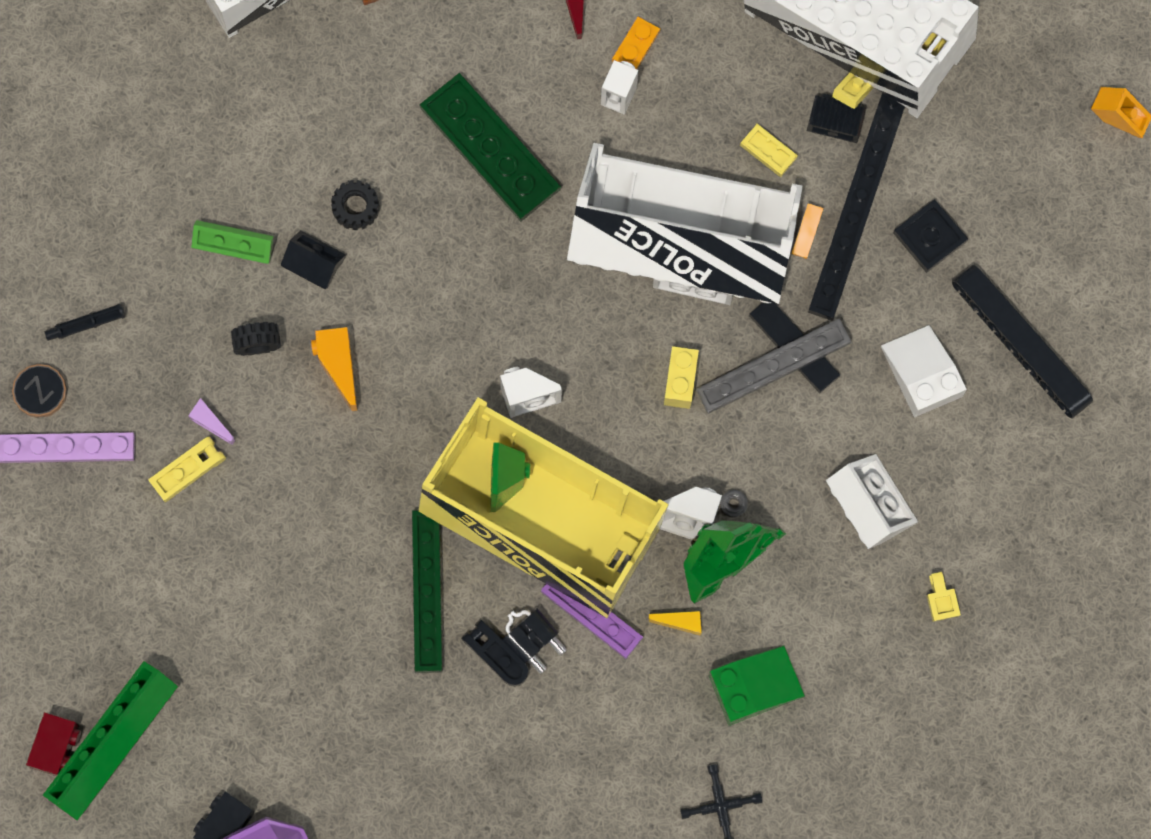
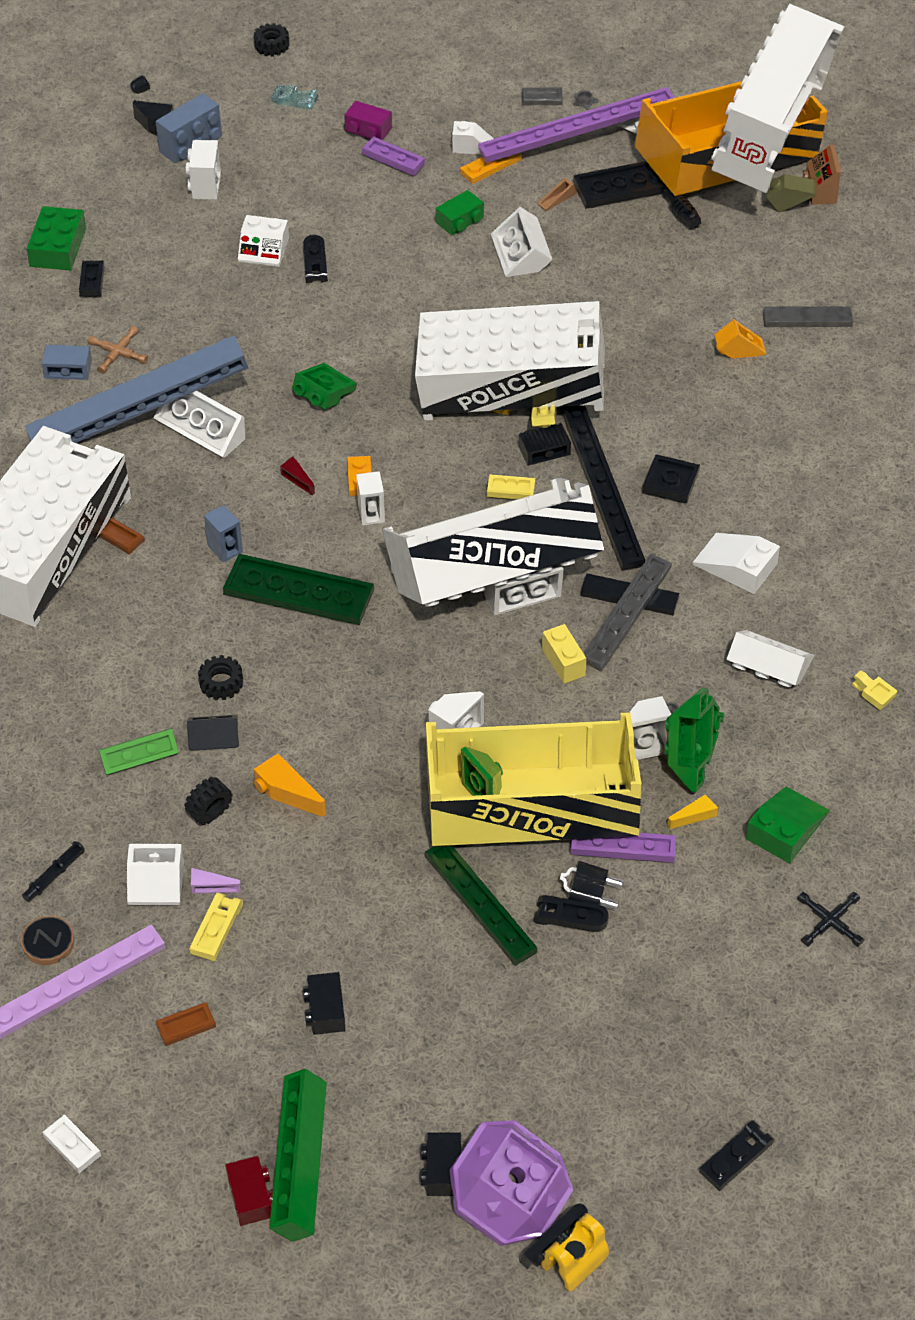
camera: 30 degrees left, 25 degrees down
(102, 549) = (185, 1024): none -> dark orange tile
(164, 386) = (154, 874): none -> white slope
(227, 608) = (325, 1003): none -> black brick
(455, 43) = (223, 533): none -> sand blue brick
(1023, 340) = (791, 504): black beam -> none

